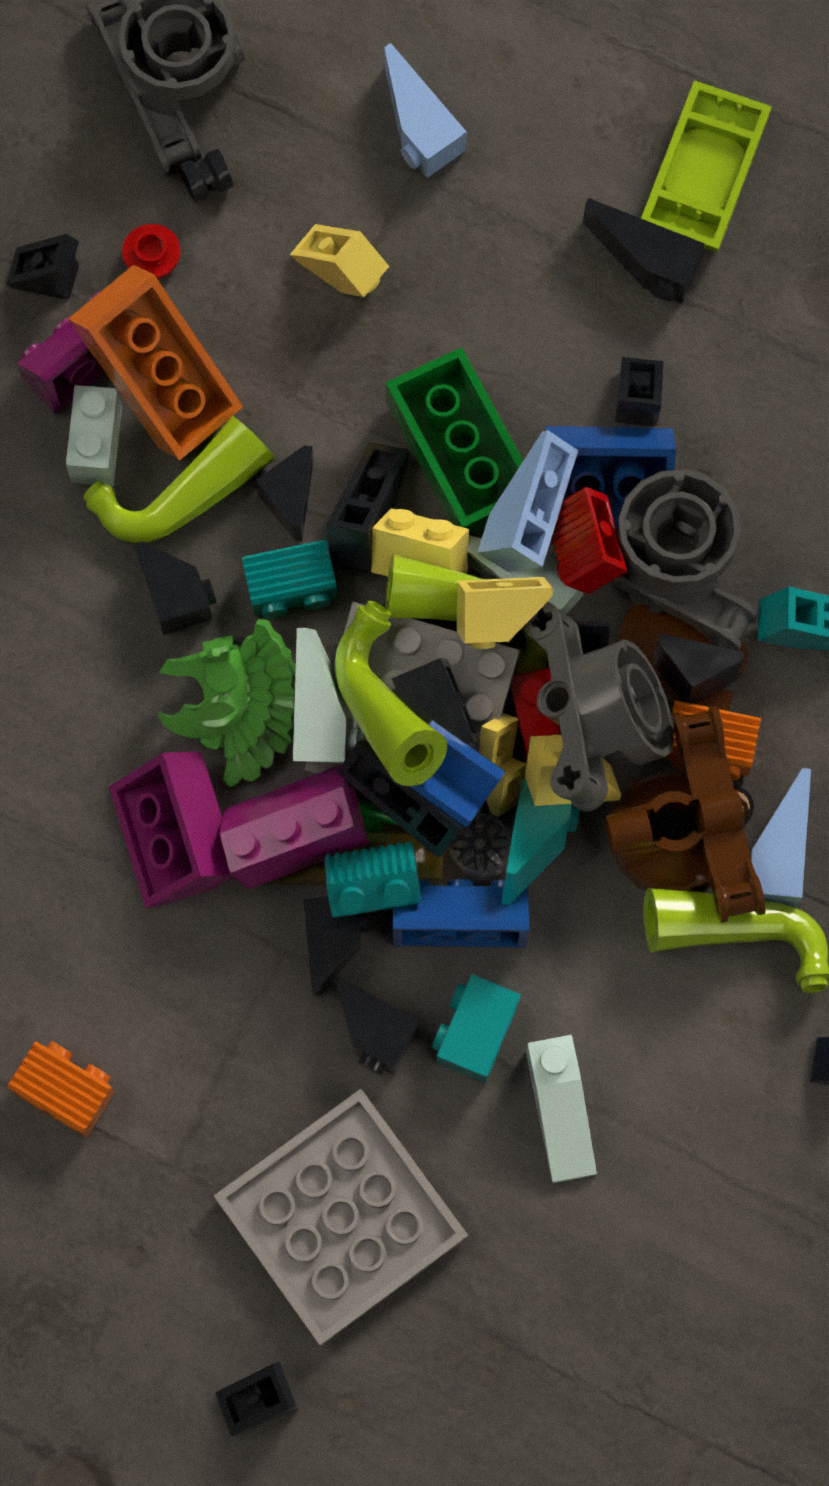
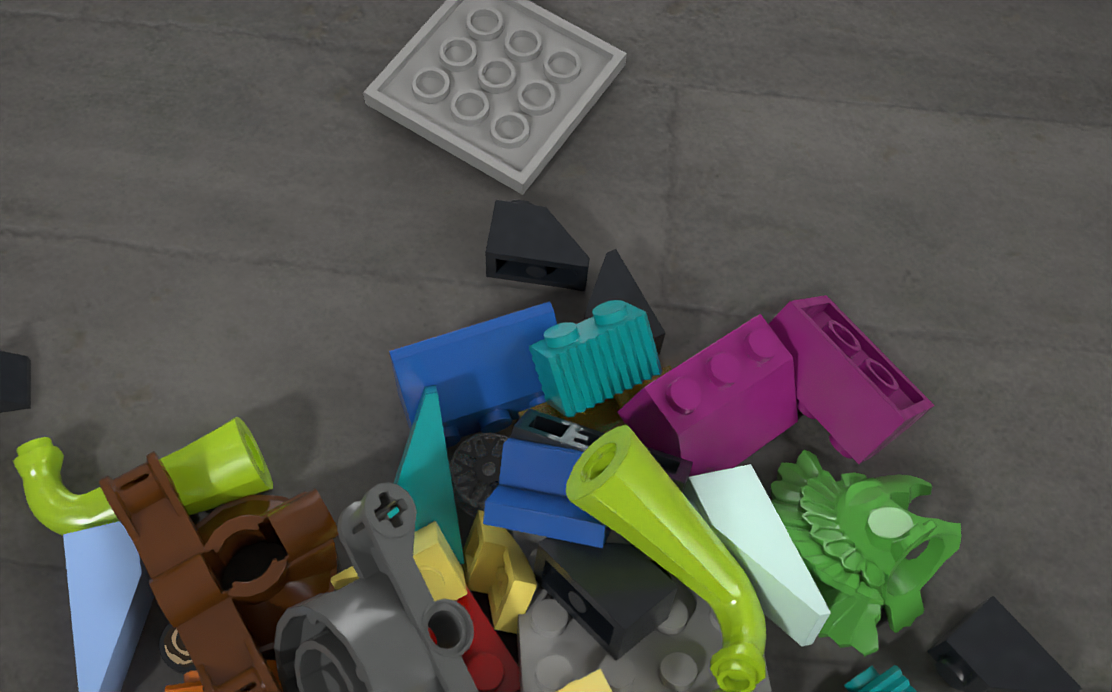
camera: 155 degrees right, 10 degrees down
(62, 1088) = (817, 99): orange brick -> none
(477, 1027) = (420, 280): teal brick -> none
(561, 1108) = (309, 242): light aqua slope -> none

